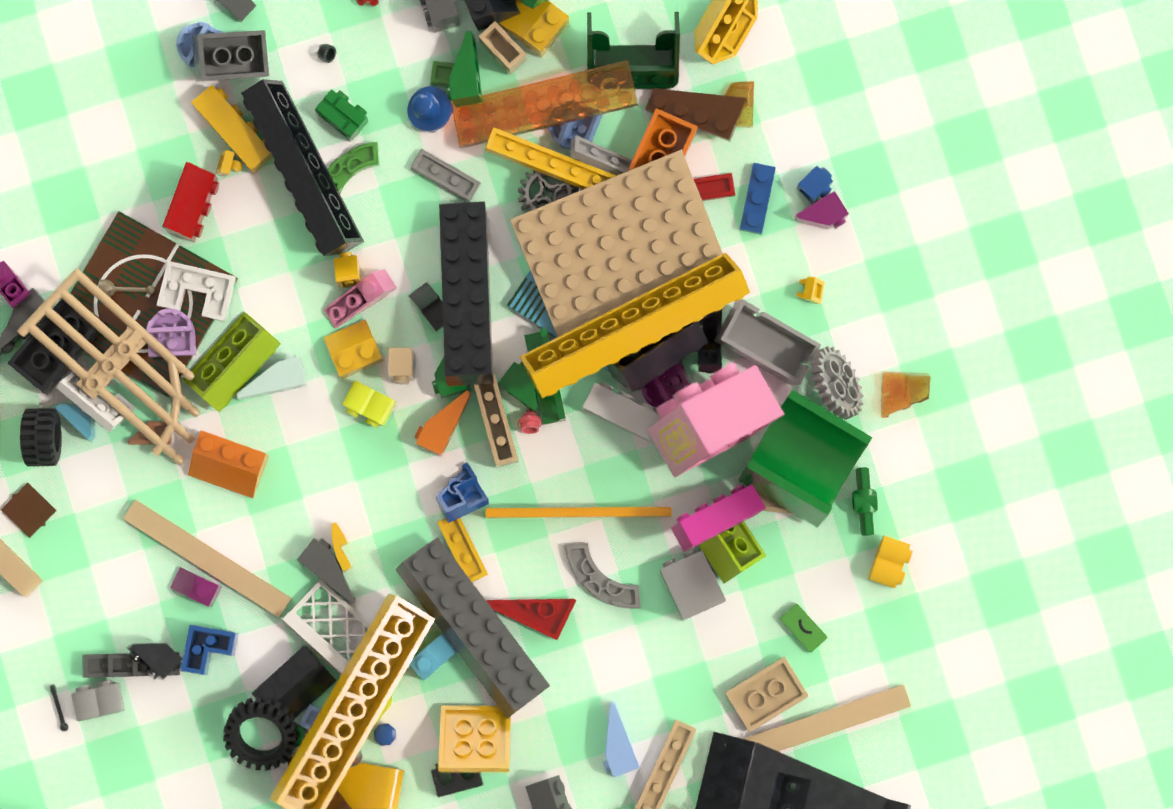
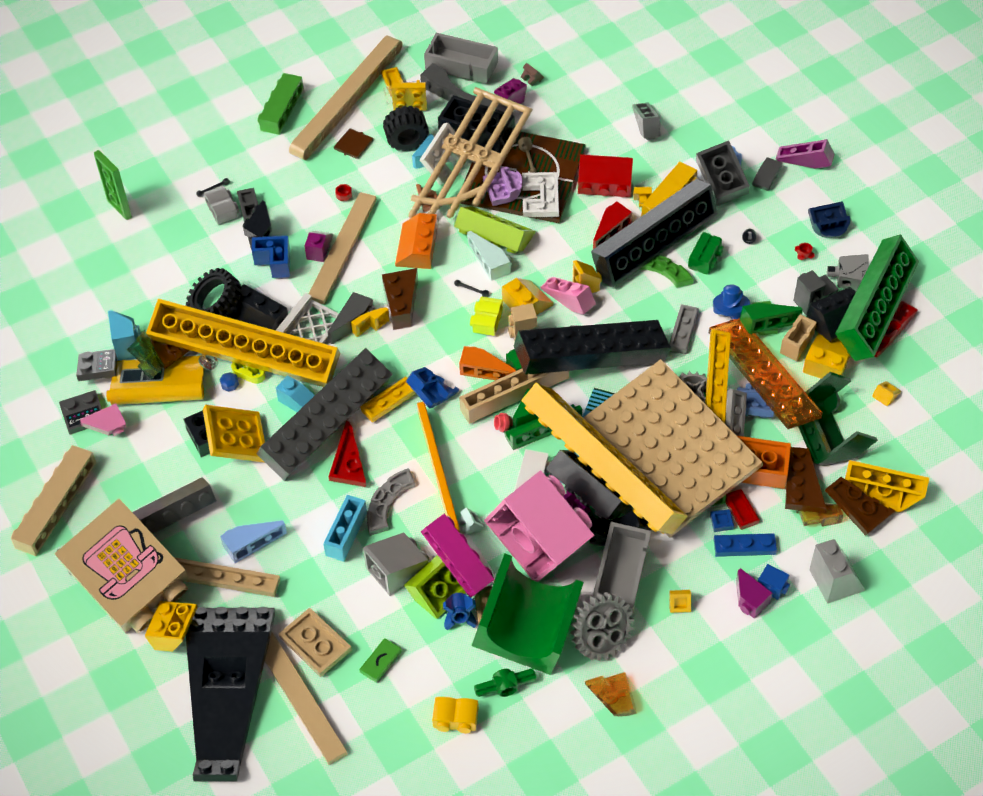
camera: 80 degrees right, 30 degrees down
(98, 120) = (647, 120): none -> dark grey slope
(116, 539) = (343, 192): none -> red tile
(262, 214) = (613, 220): none -> red slope
(314, 503) = (400, 296): none -> reddish brown wedge
(326, 398) = (485, 293): none -> black hinge
(635, 634) = (345, 528): none -> medium azure brick
(655, 490) = (472, 521): none -> light aqua tile
(720, 213) = (721, 520): none -> blue tile
(745, 60) = (859, 507): none -> reddish brown wing
(768, 529) = (459, 610): none -> blue brick
(825, 114) = (834, 572): none -> light grey slope

